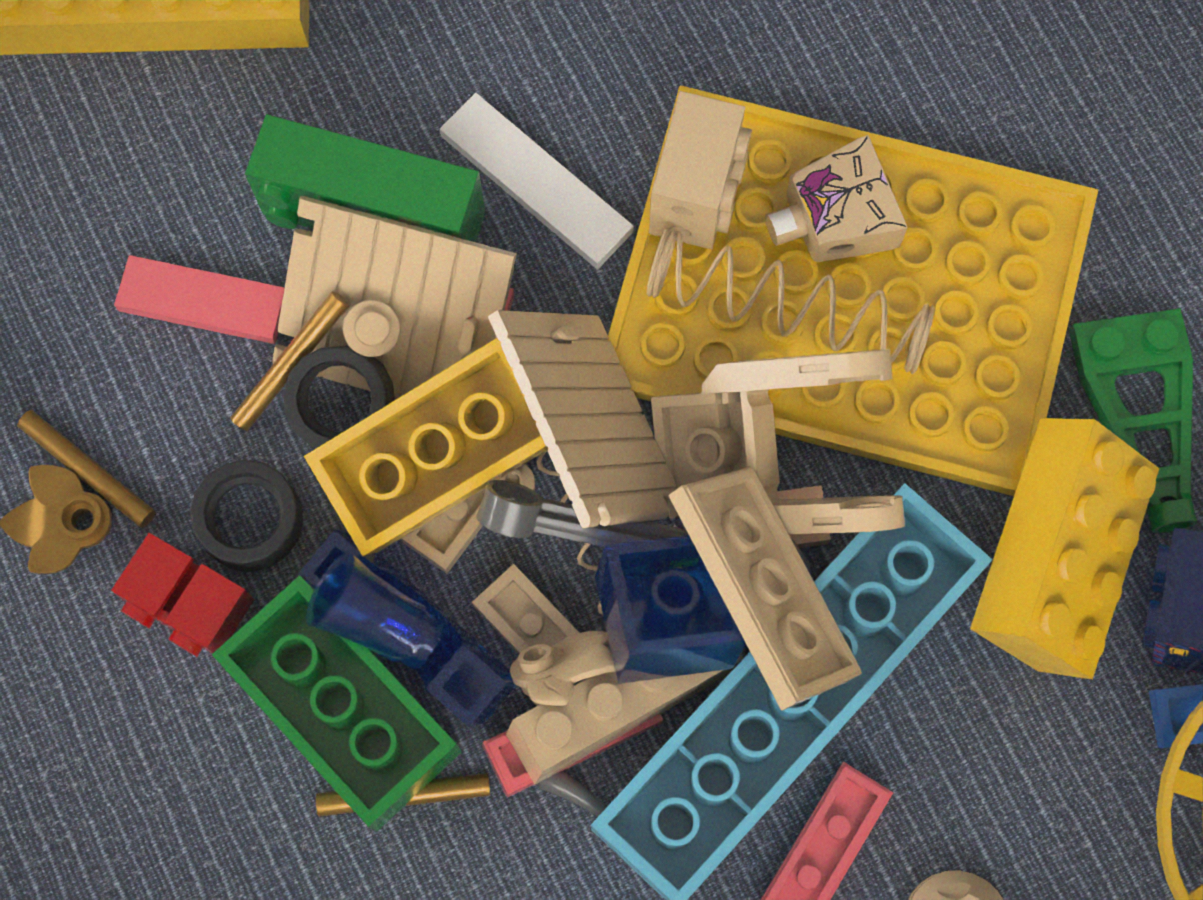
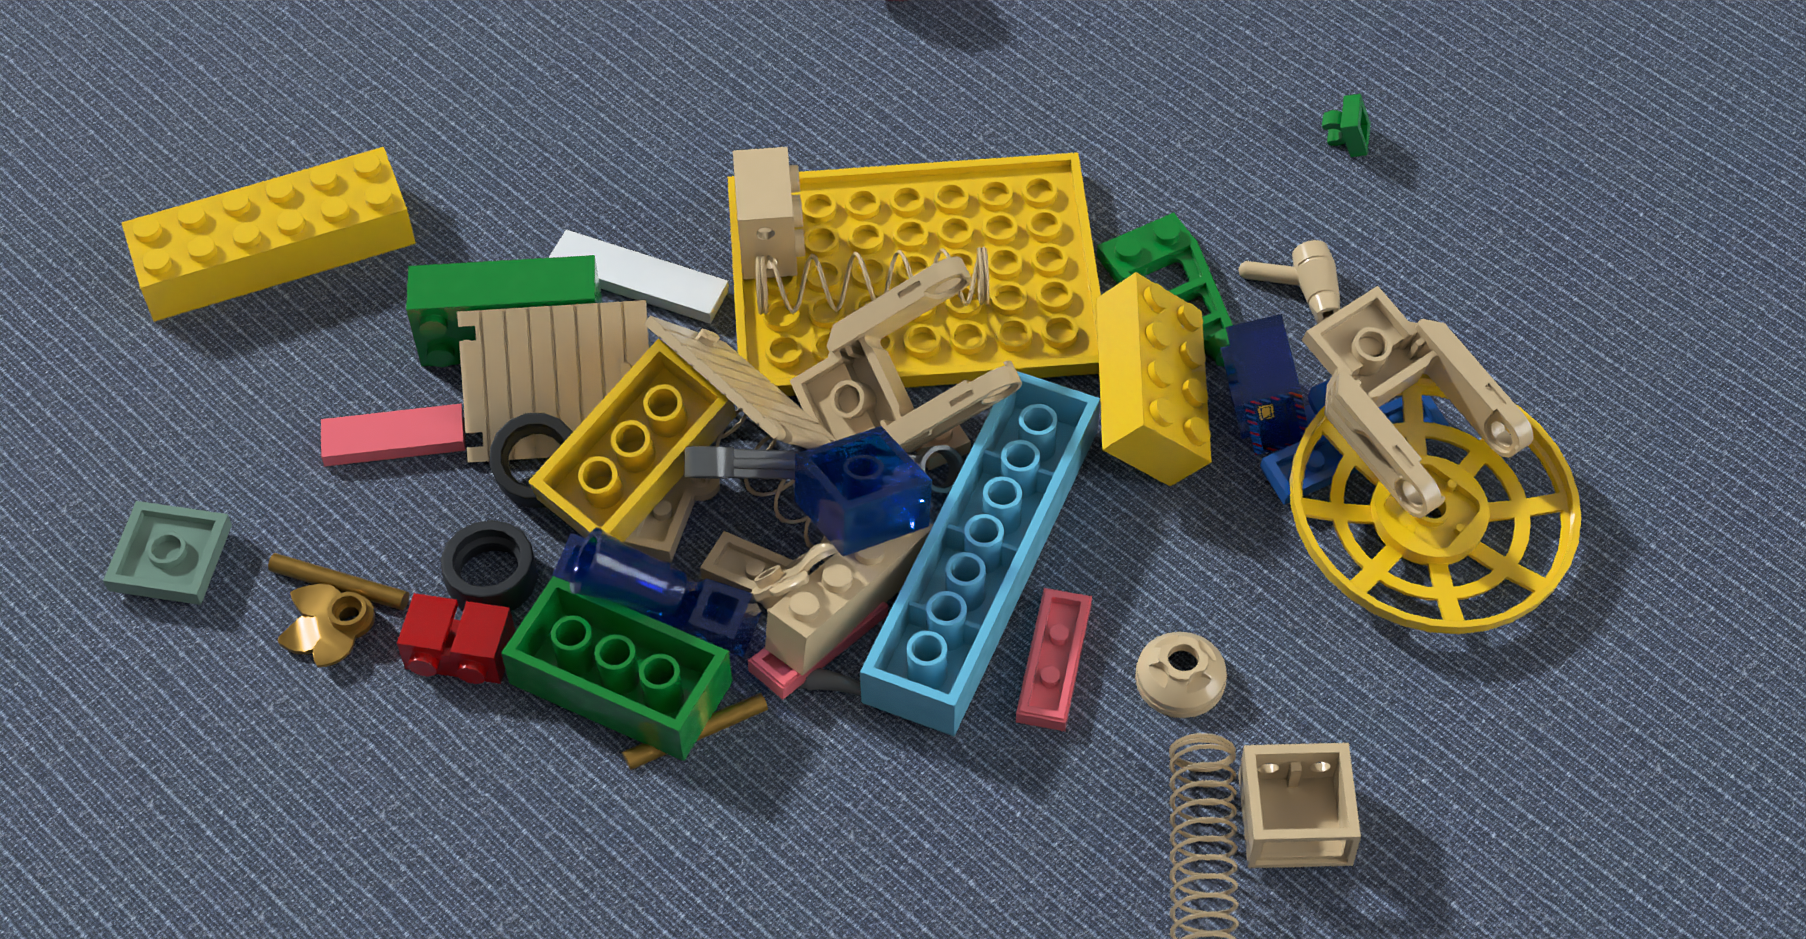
camera: 20 degrees left, 20 degrees down
(300, 346) = (481, 453): pearl gold bar -> none
(371, 328) = (546, 392): tan plate -> none
(765, 586) = (932, 450): tan tile -> none
(840, 206) = (887, 211): tan torso -> none

